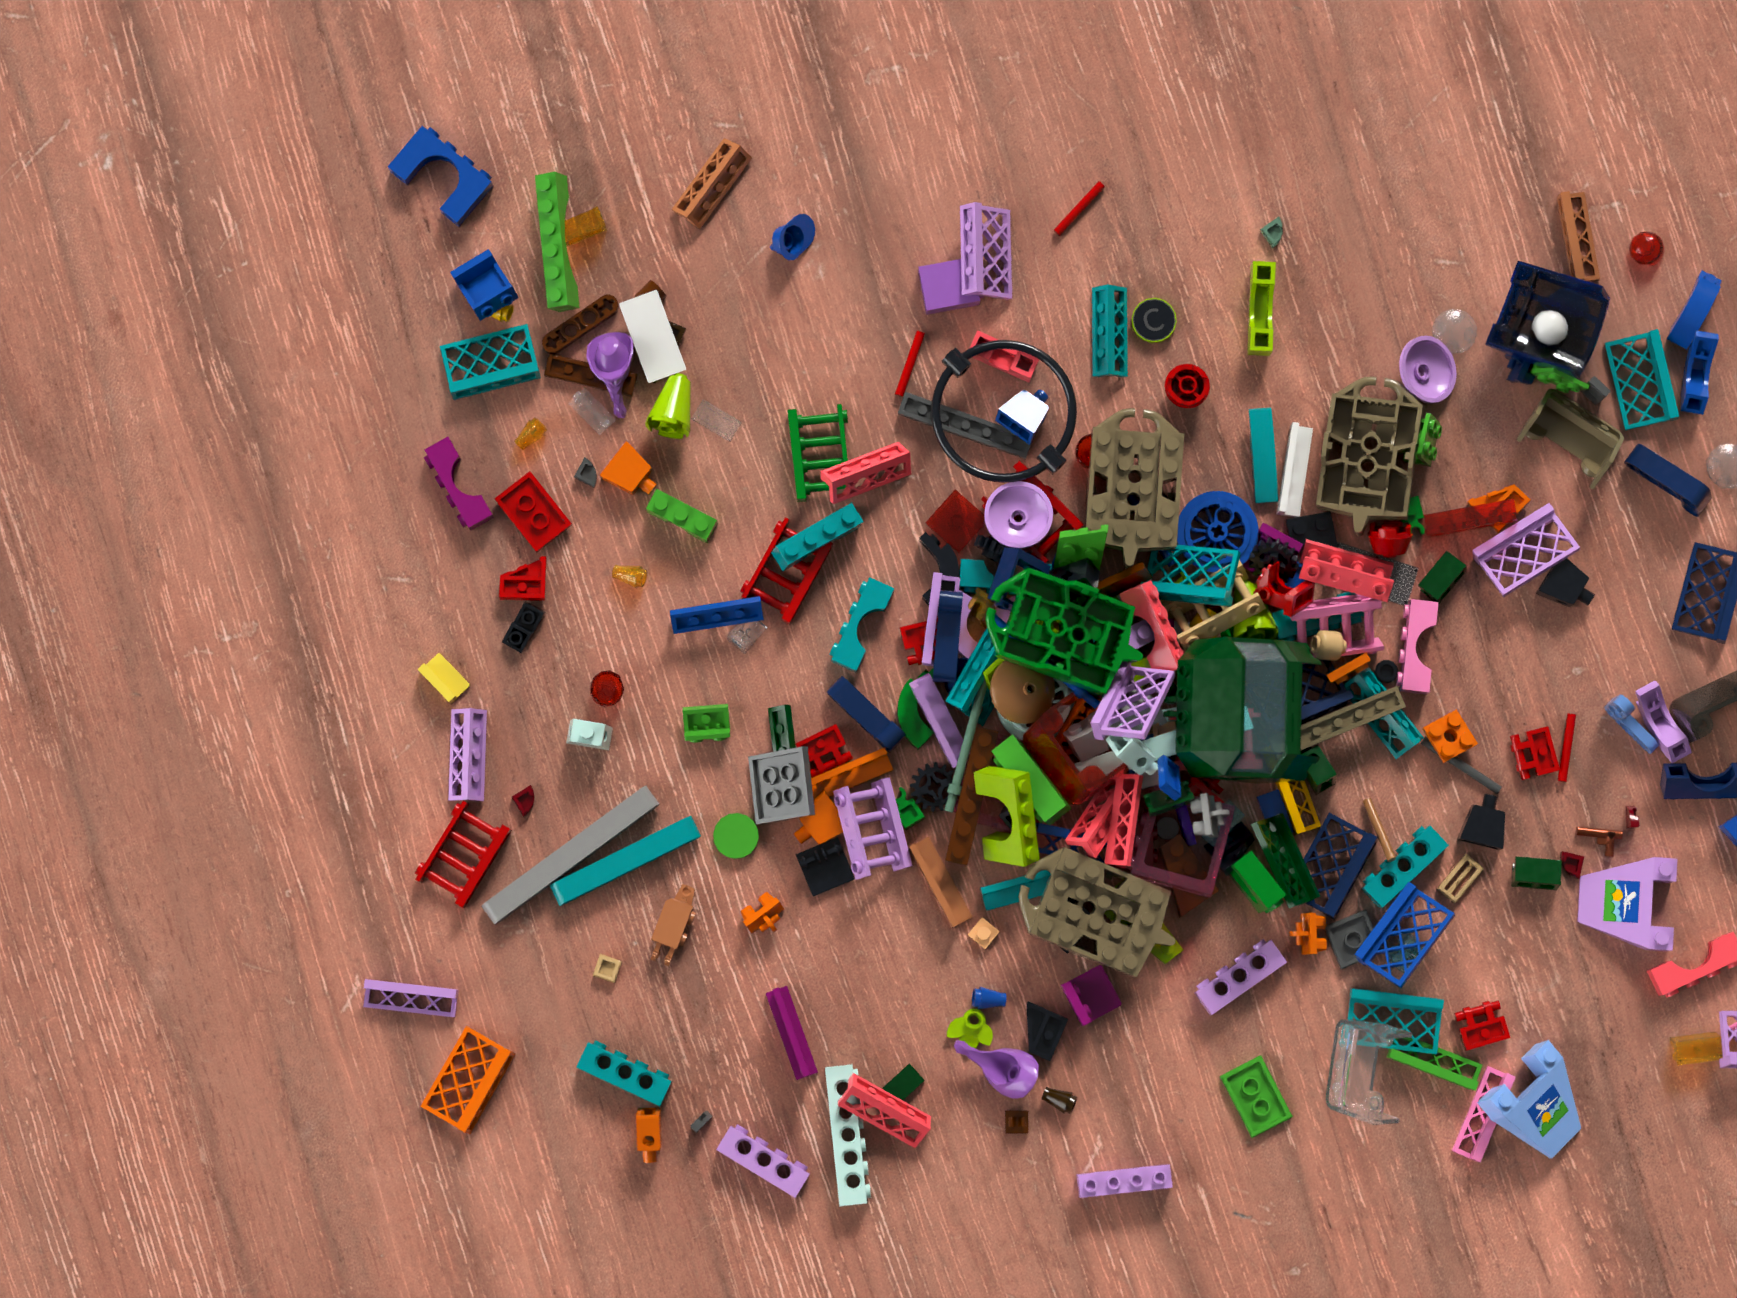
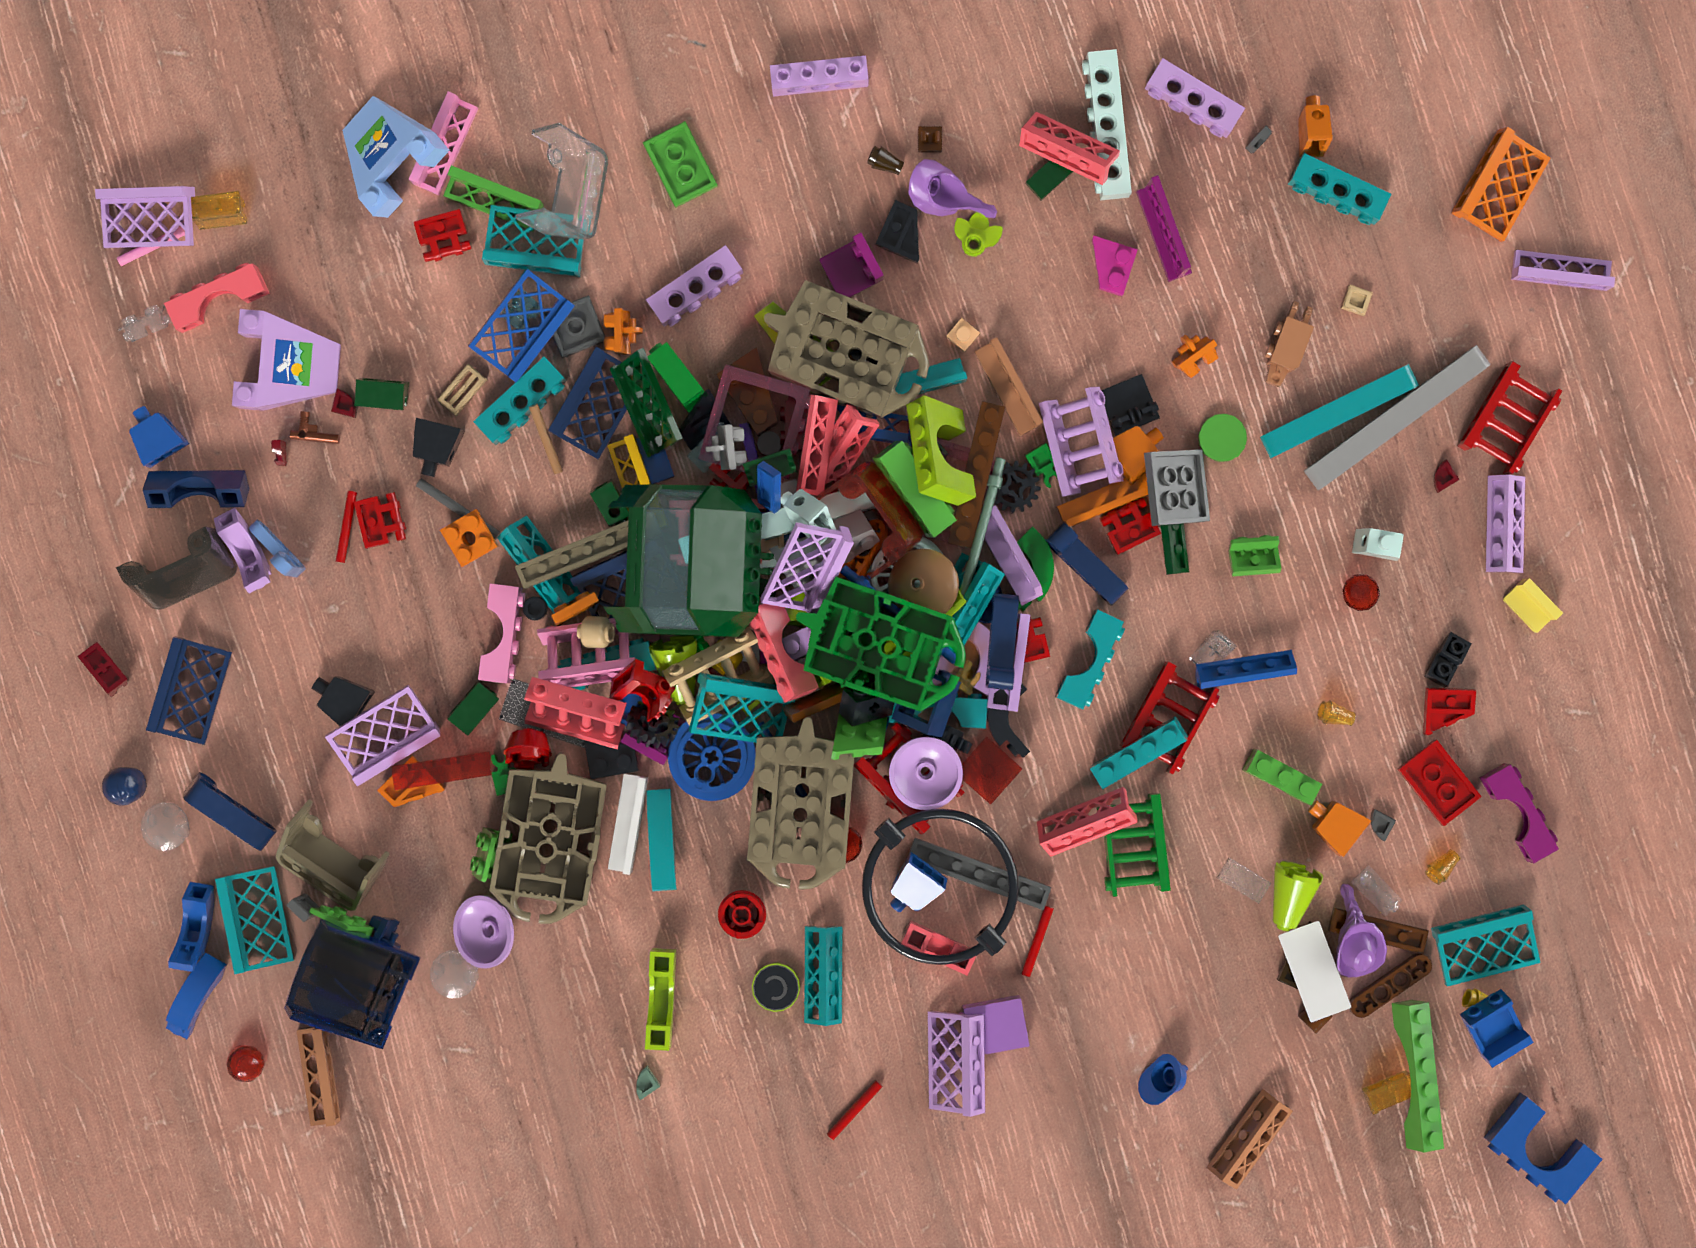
camera: 175 degrees left, 5 degrees up
(840, 1001) = (1113, 264): none -> dark pink wing
(986, 998) = (960, 266): blue cone -> none
(1550, 327) = (350, 976): white hair -> none

